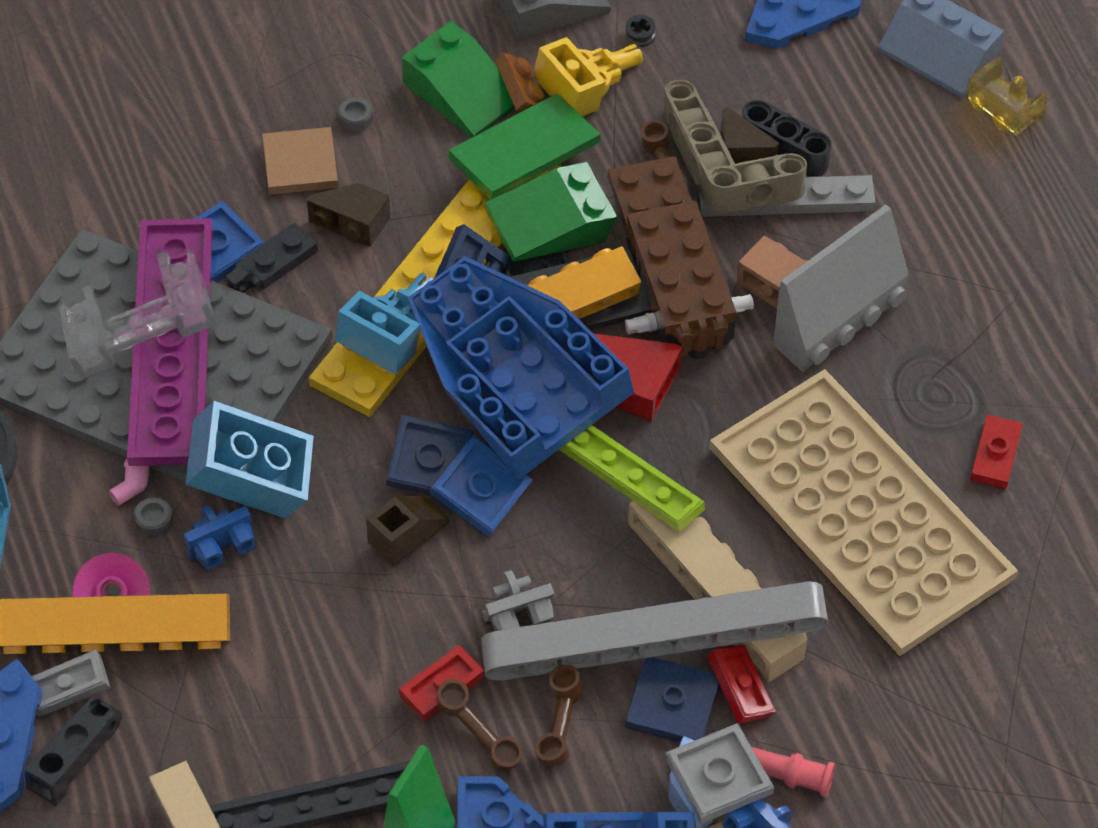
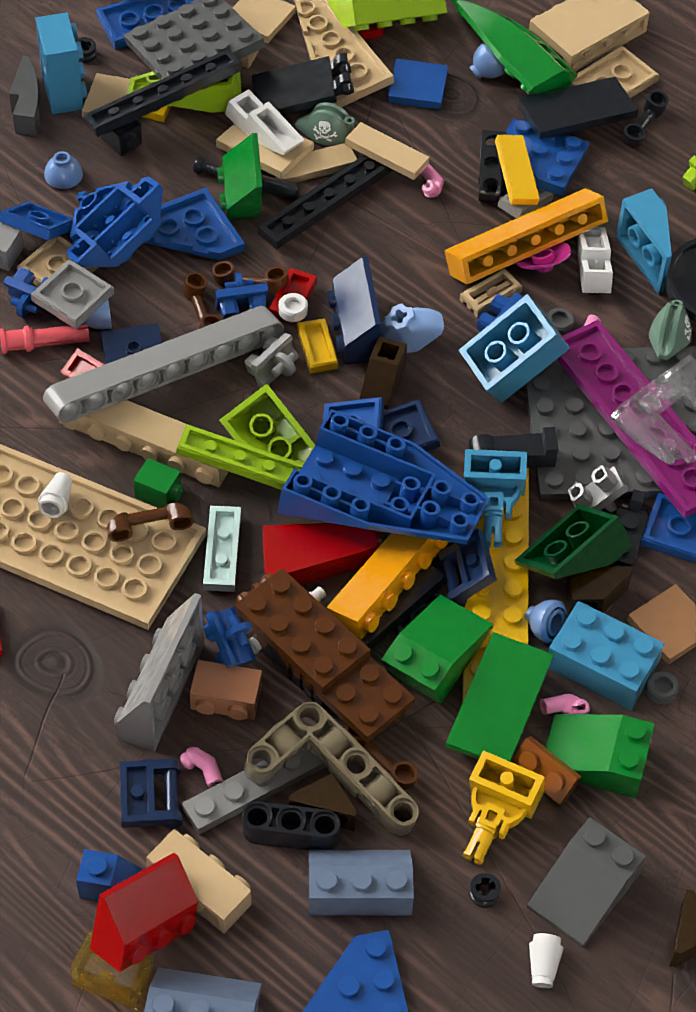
camera: 150 degrees right, 0 degrees up
(50, 430) = (670, 330): none -> sand green hat
(57, 558) = (594, 261): none -> white slope
(57, 701) = (517, 170): none -> yellow tile
(159, 762) = (434, 182): none -> bright pink arm
(202, 578) = (483, 302): none -> tan tile
(277, 288) = (601, 492): none -> light grey hips
(331, 361) = (540, 447): none -> black leg
(339, 567) = (412, 326): none -> light blue piece
(354, 234) = (577, 544): none -> dark green slope
(388, 606) = (355, 312): none -> slope
(393, 148) = (605, 655): none -> dark azure brick
(422, 205) = (546, 619): none -> medium blue brick
(451, 613) = (317, 345): none -> yellow tile
(453, 130) = (564, 704): none -> bright pink arm
(457, 650) = (293, 307): none -> white tile
(505, 705) = (240, 294): none -> blue hips
(574, 515) = (269, 426): none -> lime wedge
(702, 419) = (222, 549): none -> light aqua plate
(735, 514) = (158, 484): none -> green brick
(746, 67) = (361, 882): none -> sand blue slope
(755, 296) = (230, 637): none -> blue hips
(807, 462) = (178, 515): none -> reddish brown bar
(832, 226) = (196, 757): none -> bright pink arm
(860, 528) = (55, 497): none -> white cone
(894, 132) = (219, 894): none -> tan brick
(914, 221) = (138, 793): none -> dark blue plate
(966, 95) = (144, 913): none -> red slope
(975, 165) = (101, 872): none -> blue slope

